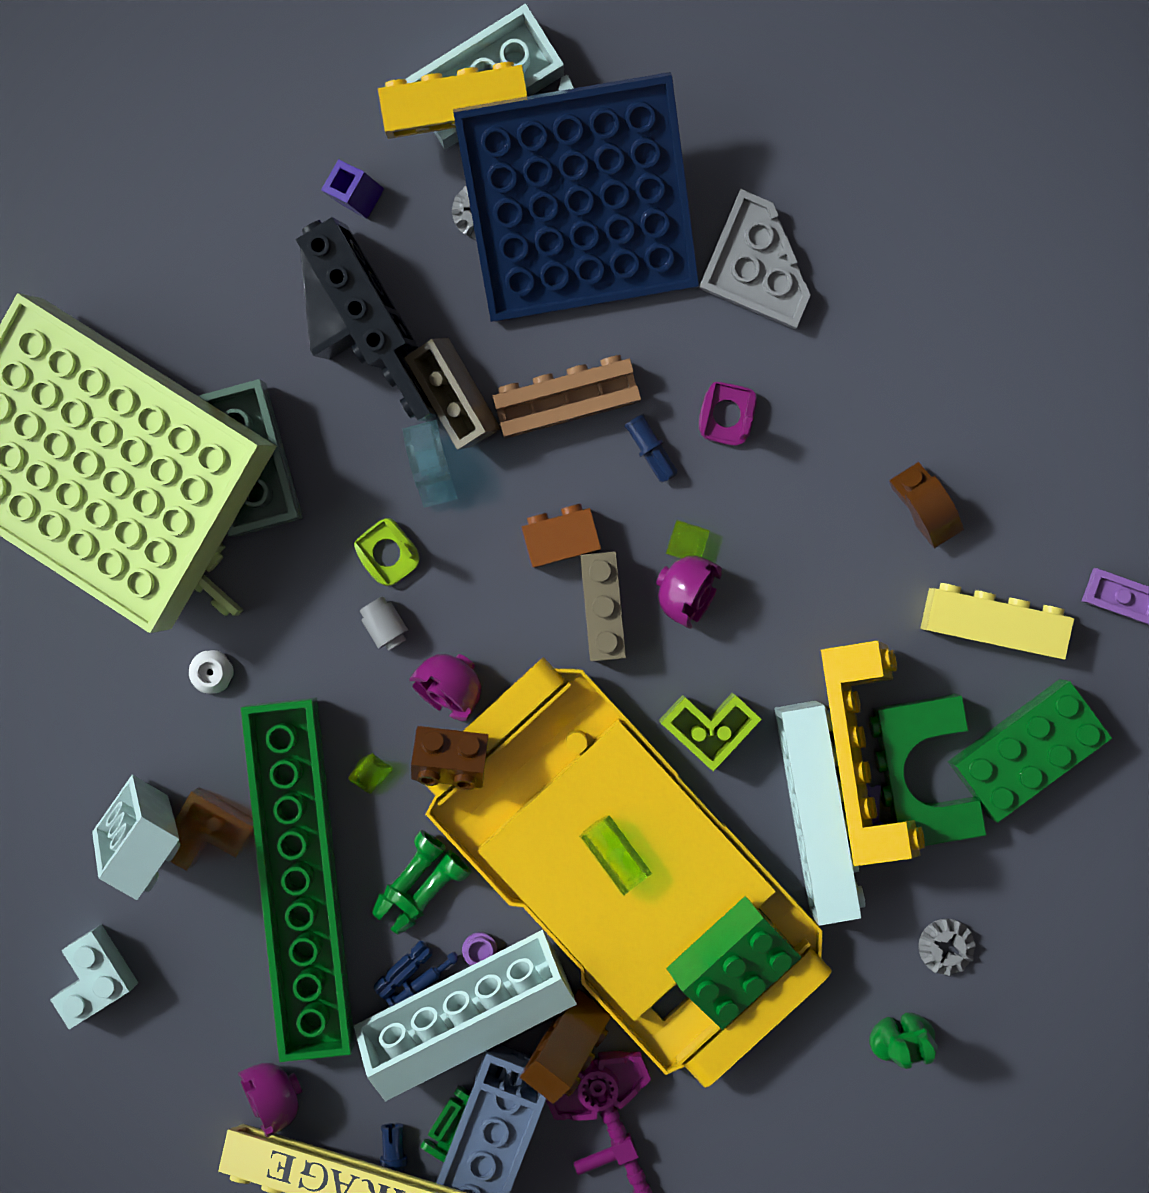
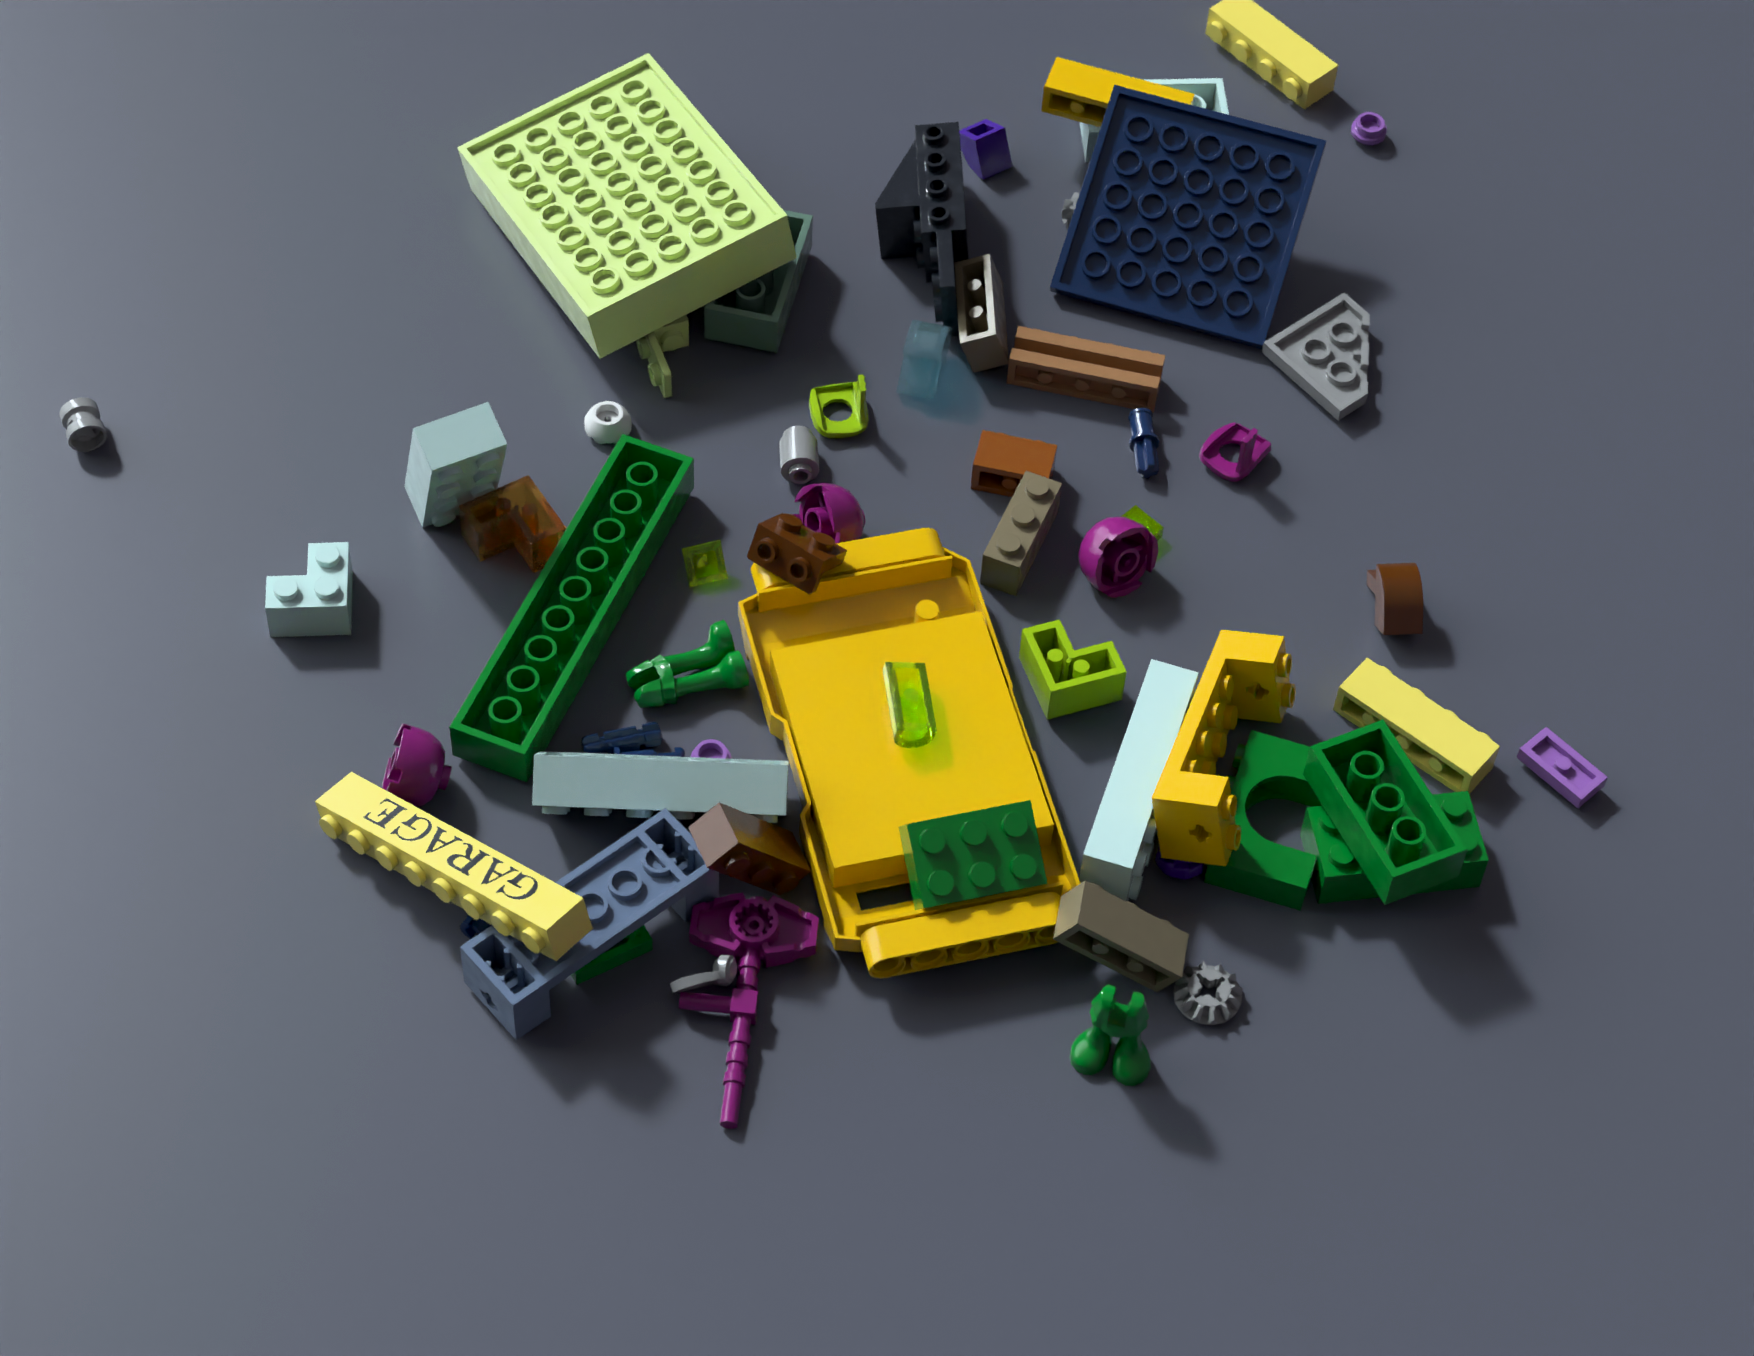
camera: 30 degrees right, 35 degrees down
(593, 1131) = (723, 975): none -> light grey piece
(871, 958) = (1121, 936): none -> dark tan brick
(1028, 764) = (1384, 812): none -> green brick

